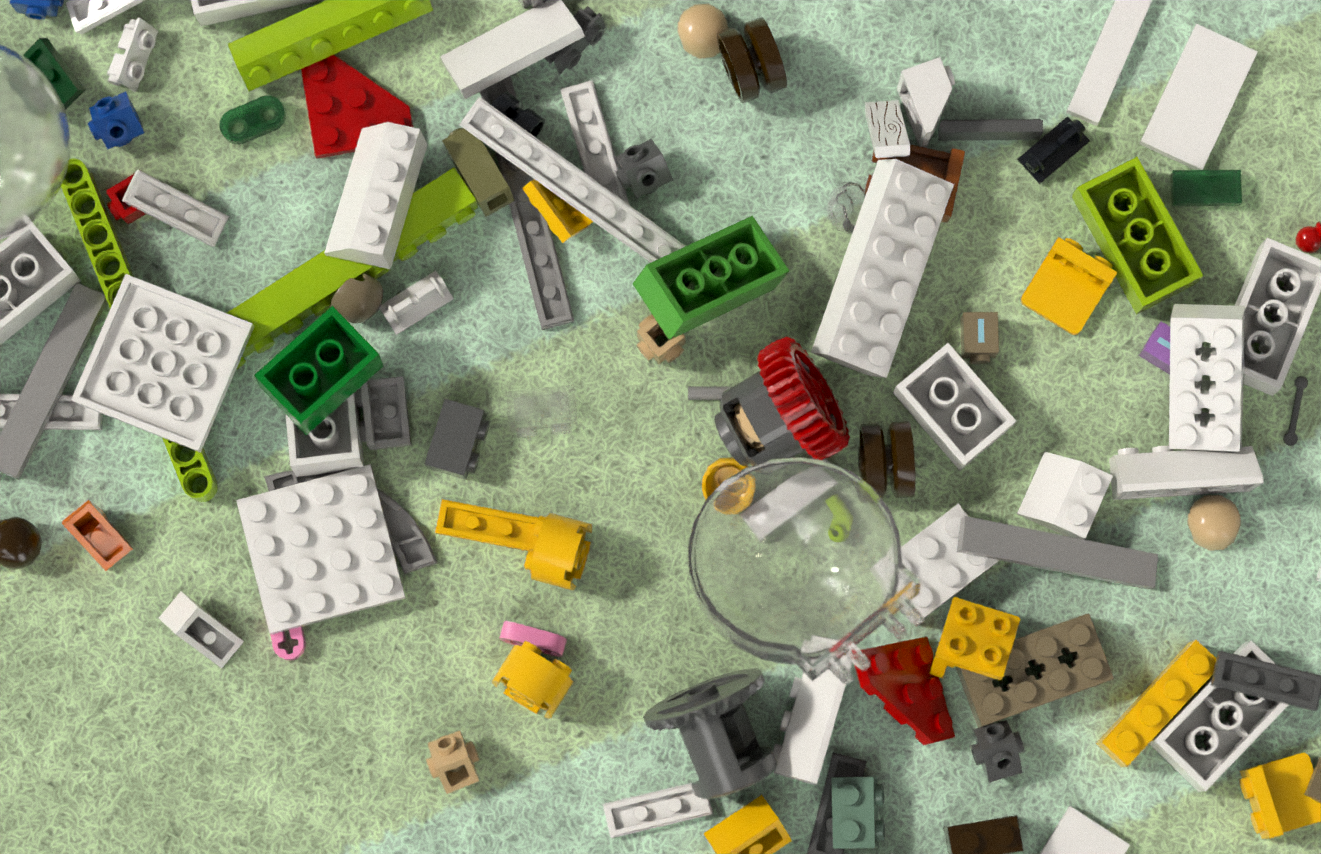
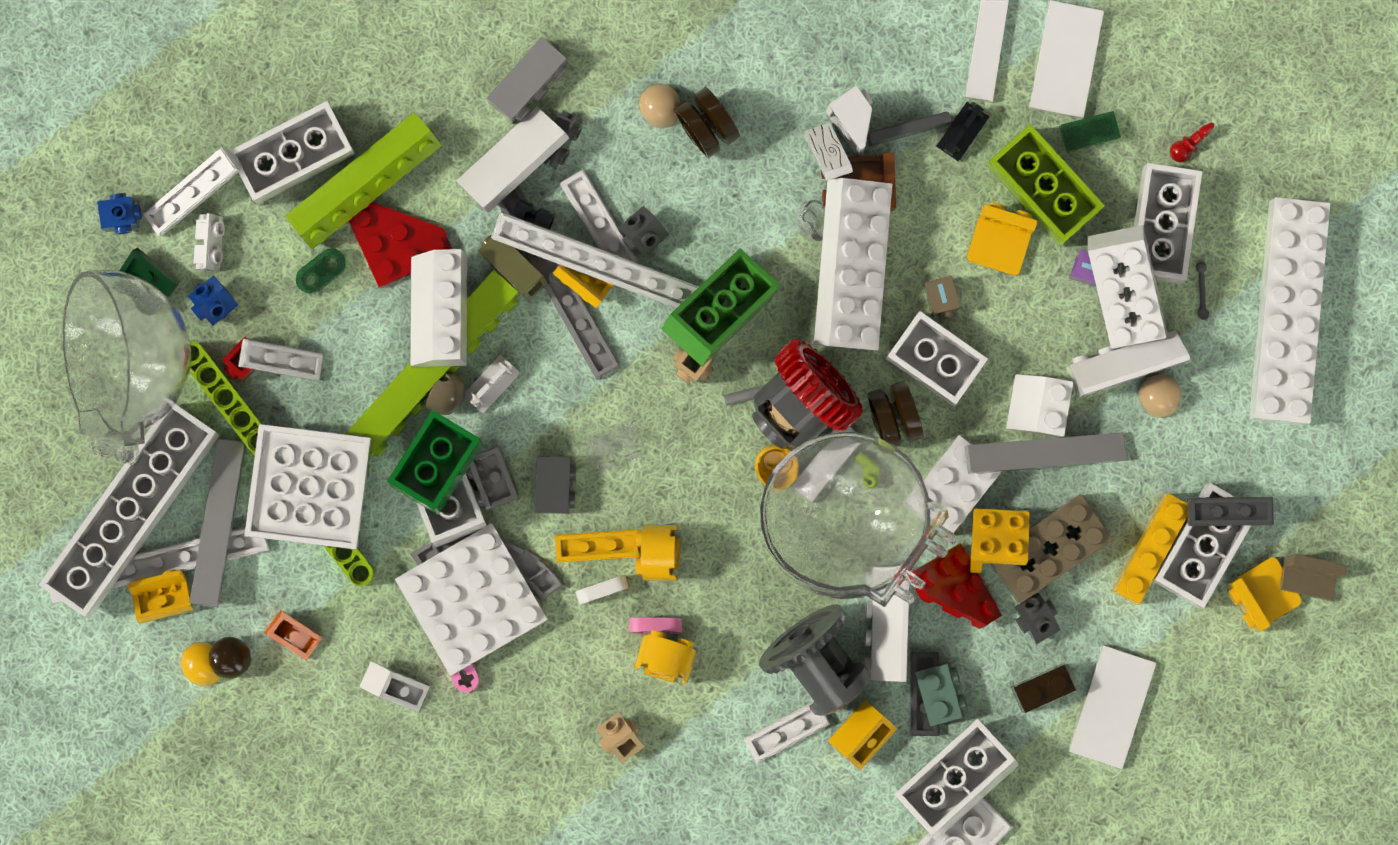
camera: 25 degrees left, 5 degrees up
(480, 578) = (602, 589): none -> white beam

